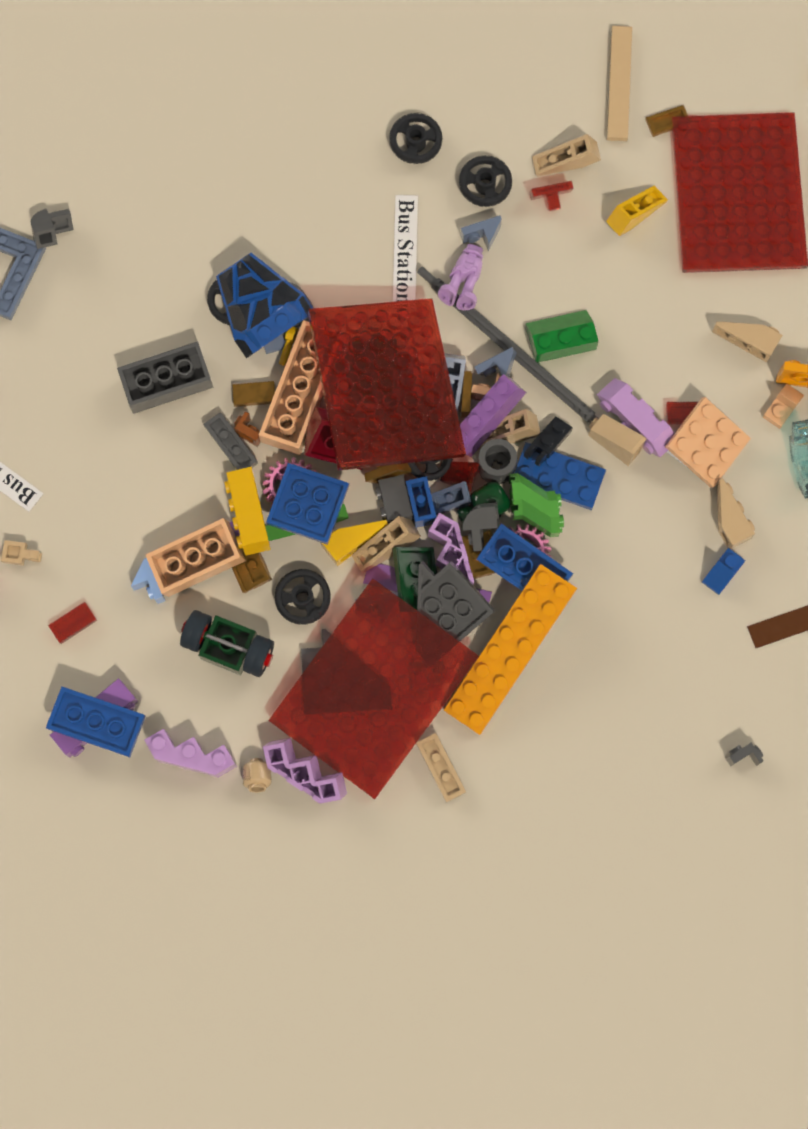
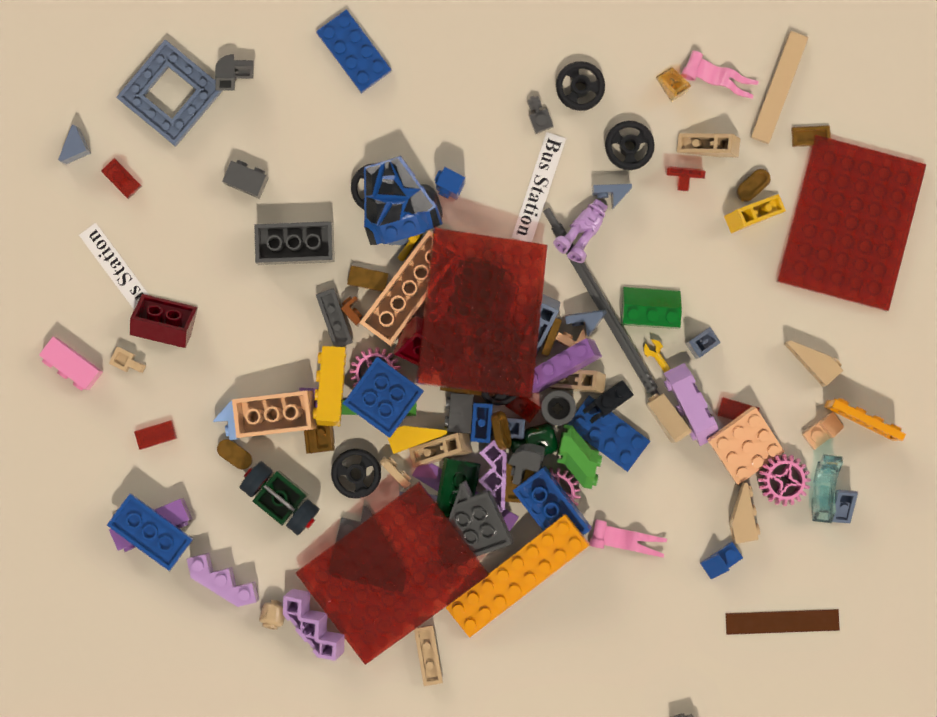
camera: 15 degrees right, 10 degrees up
(47, 500) = (163, 321): none -> dark red slope
(94, 330) = (245, 179): none -> dark grey brick
(164, 617) = (234, 454): none -> pearl gold tile
(171, 173) = (353, 51): none -> blue plate
(310, 269) = (449, 183): none -> blue brick
(337, 578) = (402, 477): none -> tan plate
(385, 184) = (540, 119): none -> dark grey plate
(444, 500) = (501, 430): none -> pearl gold tile
(511, 110) = (673, 84): none -> clear yellow slope
(548, 91) = (715, 75): none -> bright pink flag
(582, 380) = (657, 355): none -> yellow bar
(610, 580) = (622, 539): none -> bright pink flag
(625, 184) = (753, 185): none -> pearl gold tile
(626, 354) = (703, 343): none -> sand blue slope
(777, 465) = (780, 487): none -> bright pink gear

